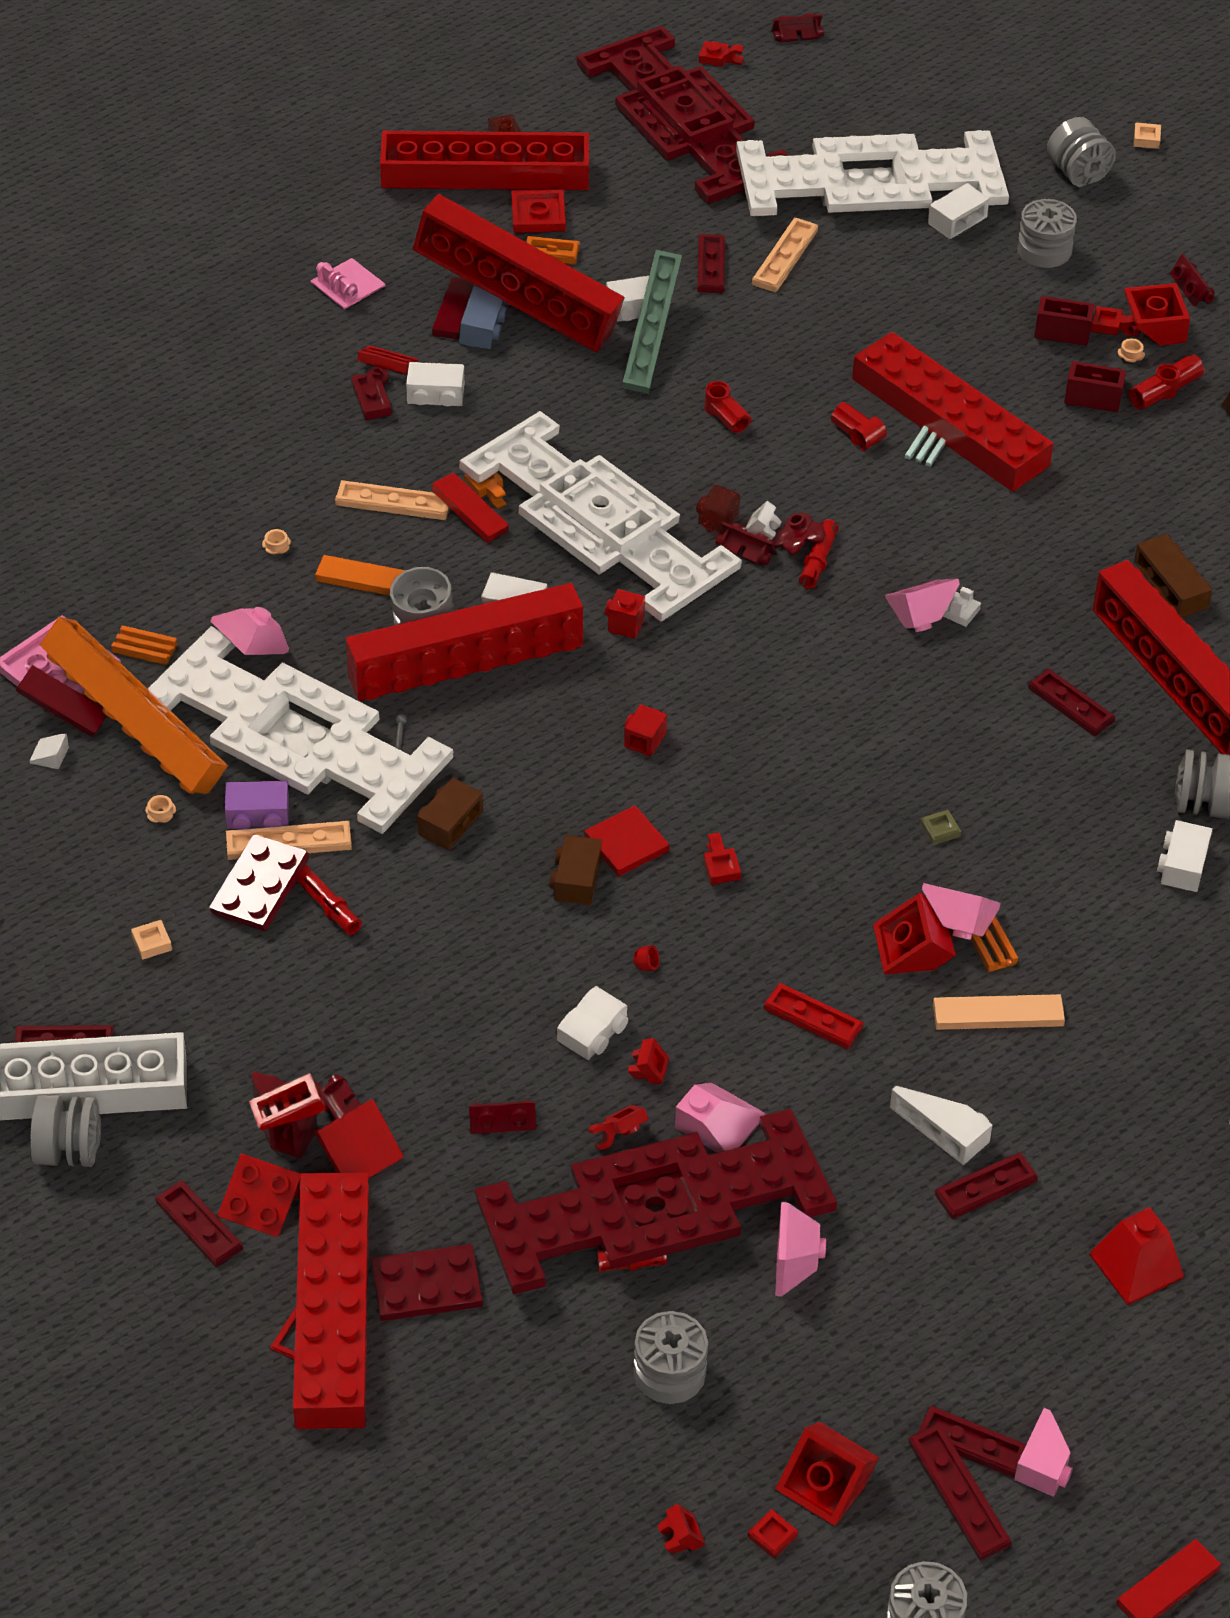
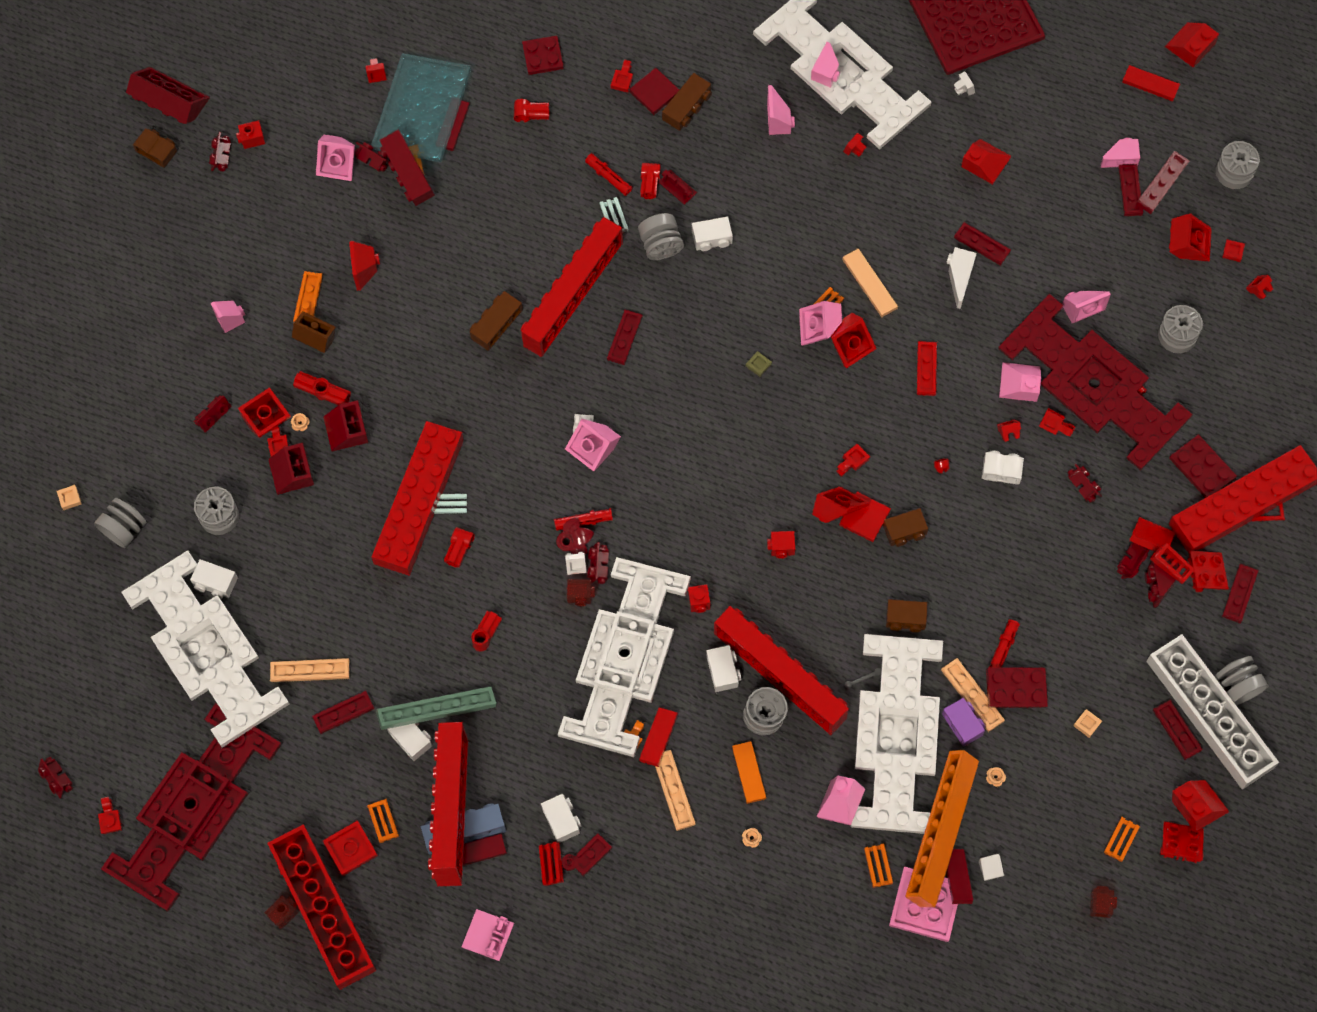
camera: 115 degrees left, 20 degrees up
(661, 806) = (836, 504): none -> red slope

